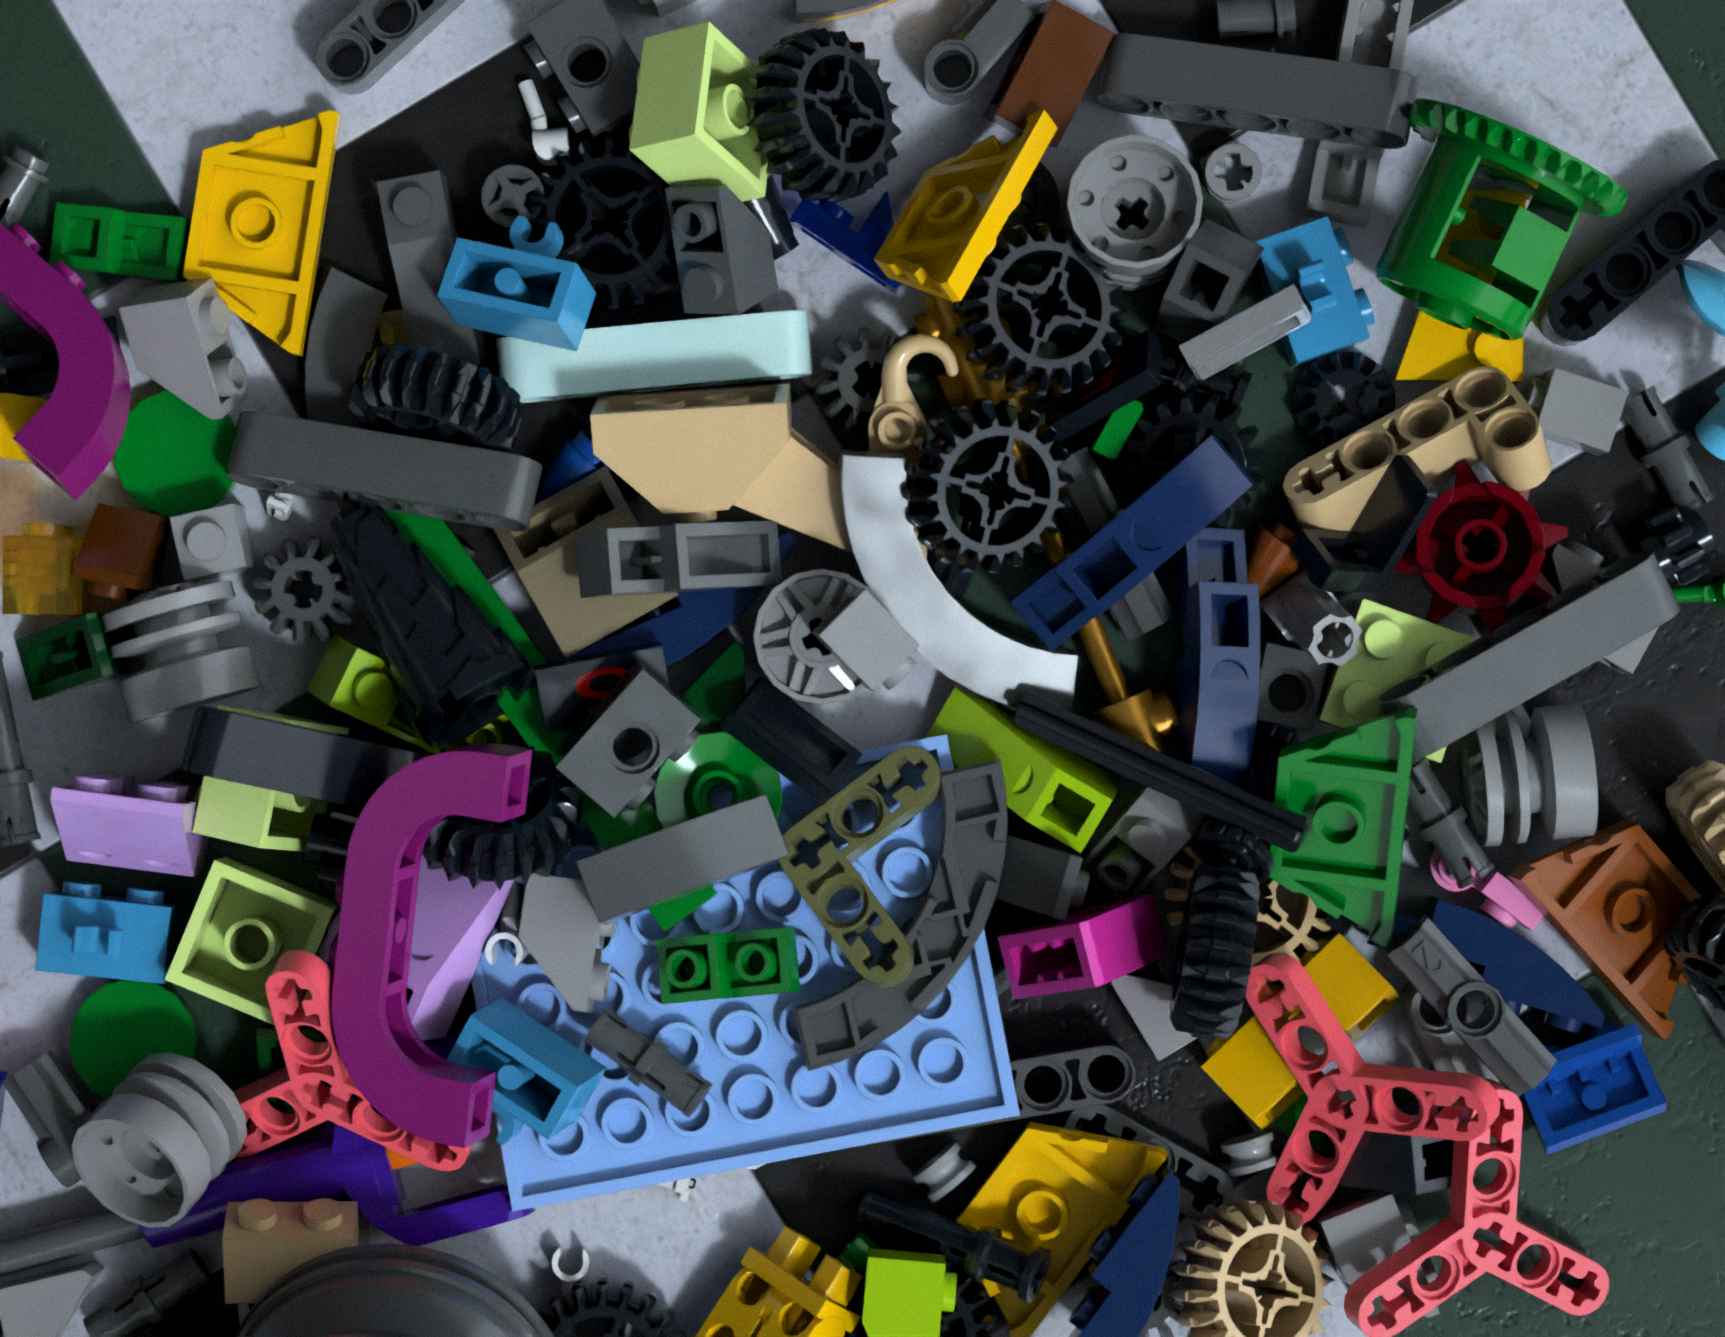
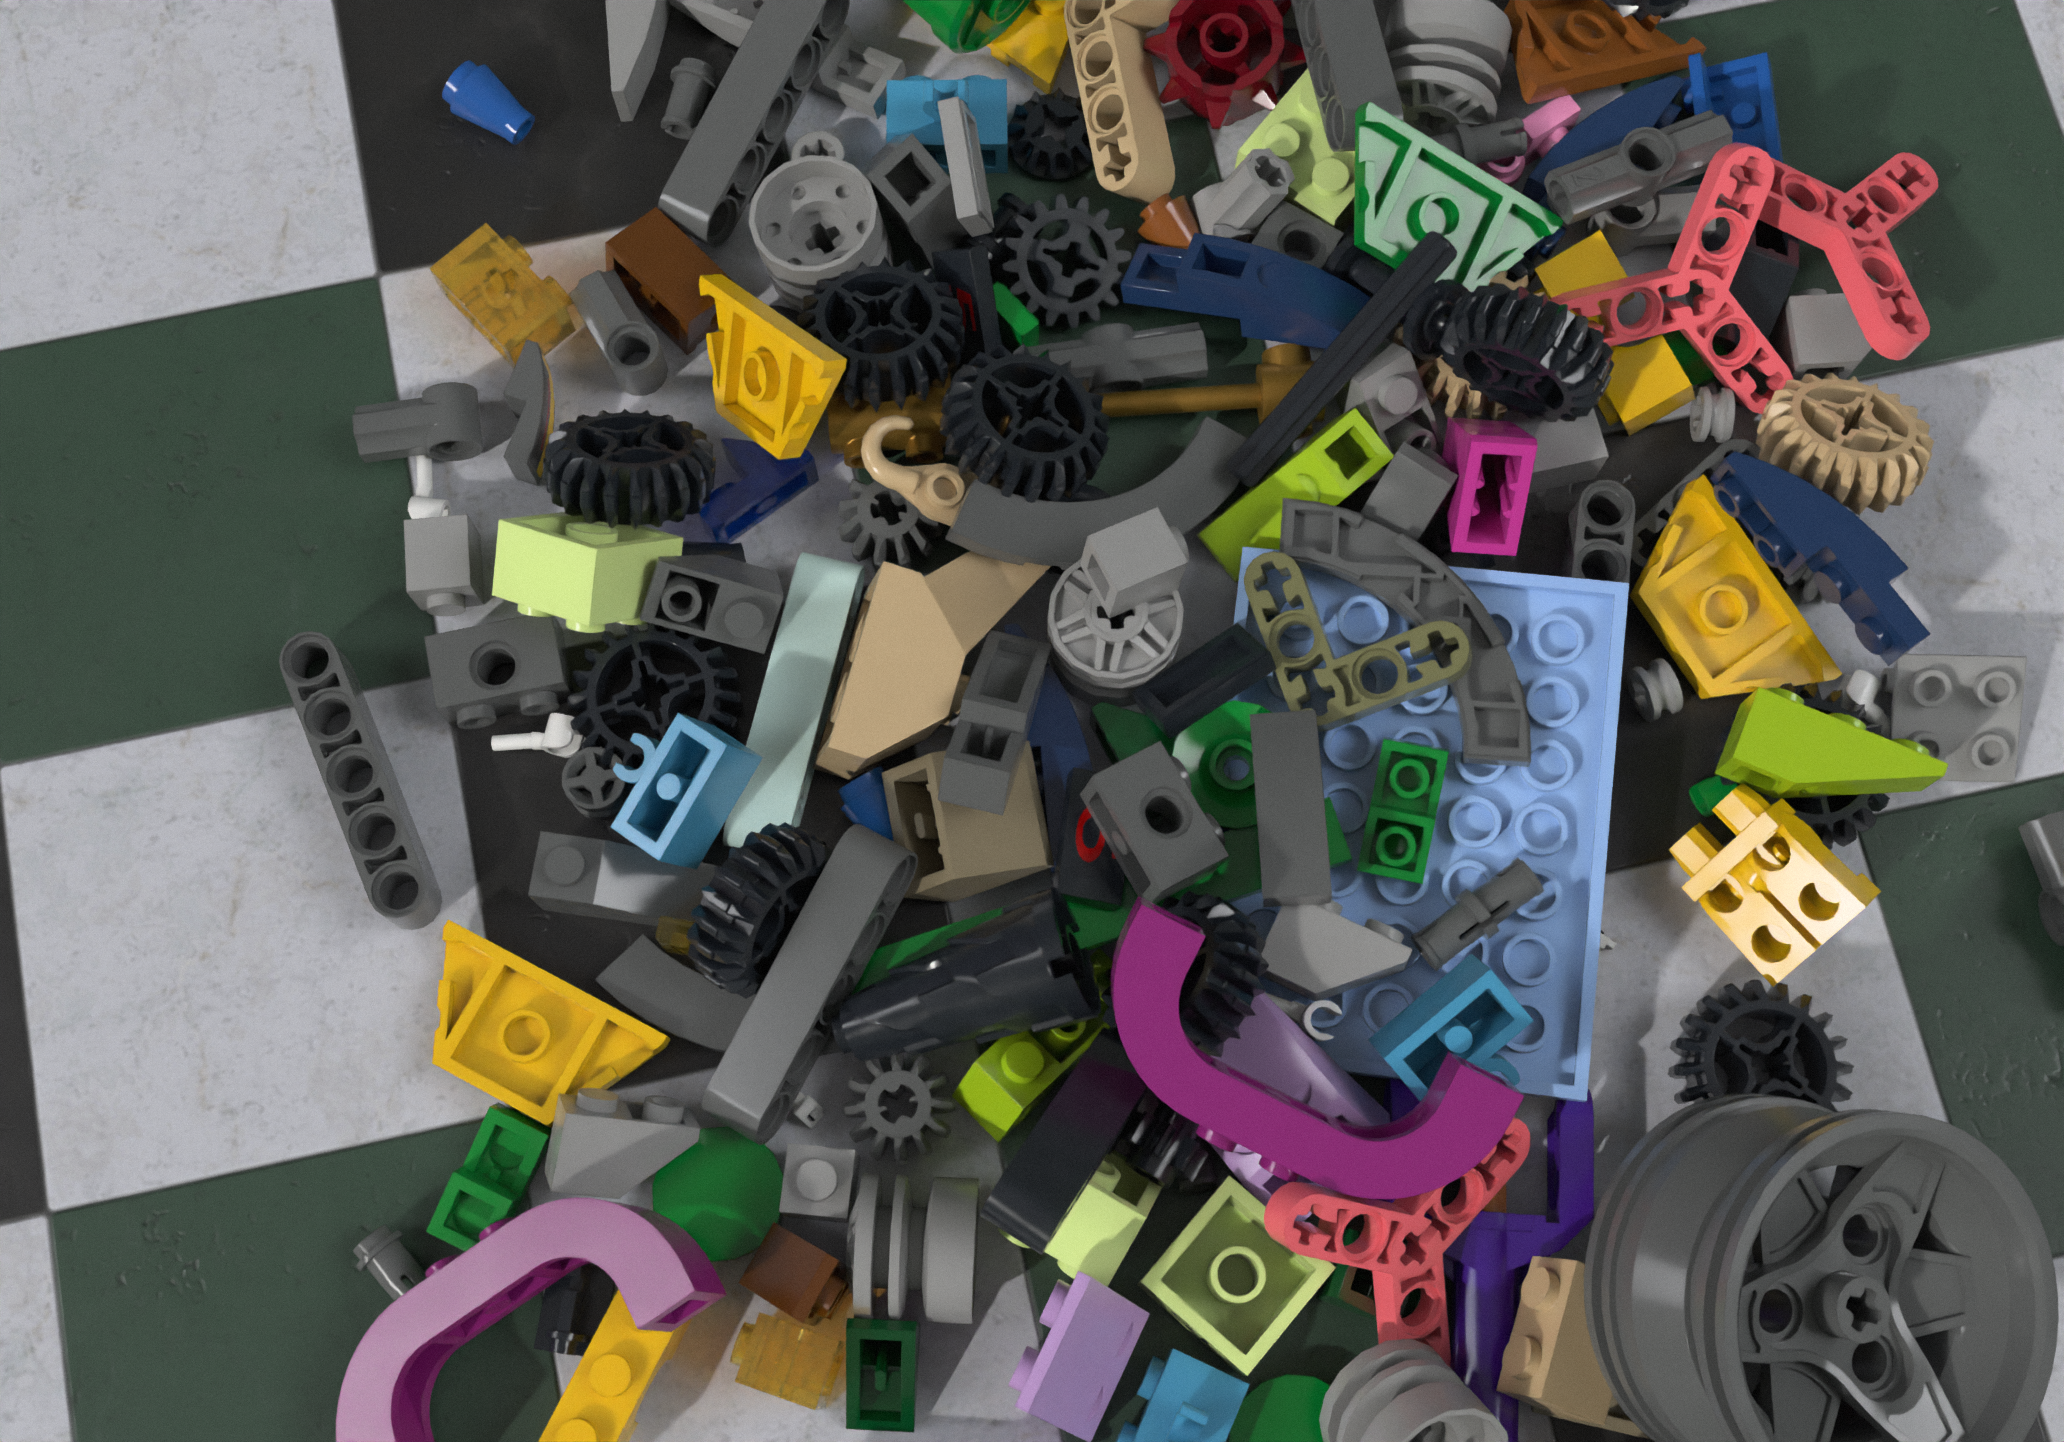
camera: 70 degrees left, 15 degrees down
(568, 1280) = (1664, 1084): white hand -> none
(979, 1251) = (1746, 669): black pin -> none
(1132, 542) = (1125, 321): dark blue slope -> none
(1378, 539) = (1181, 120): black bracket -> none

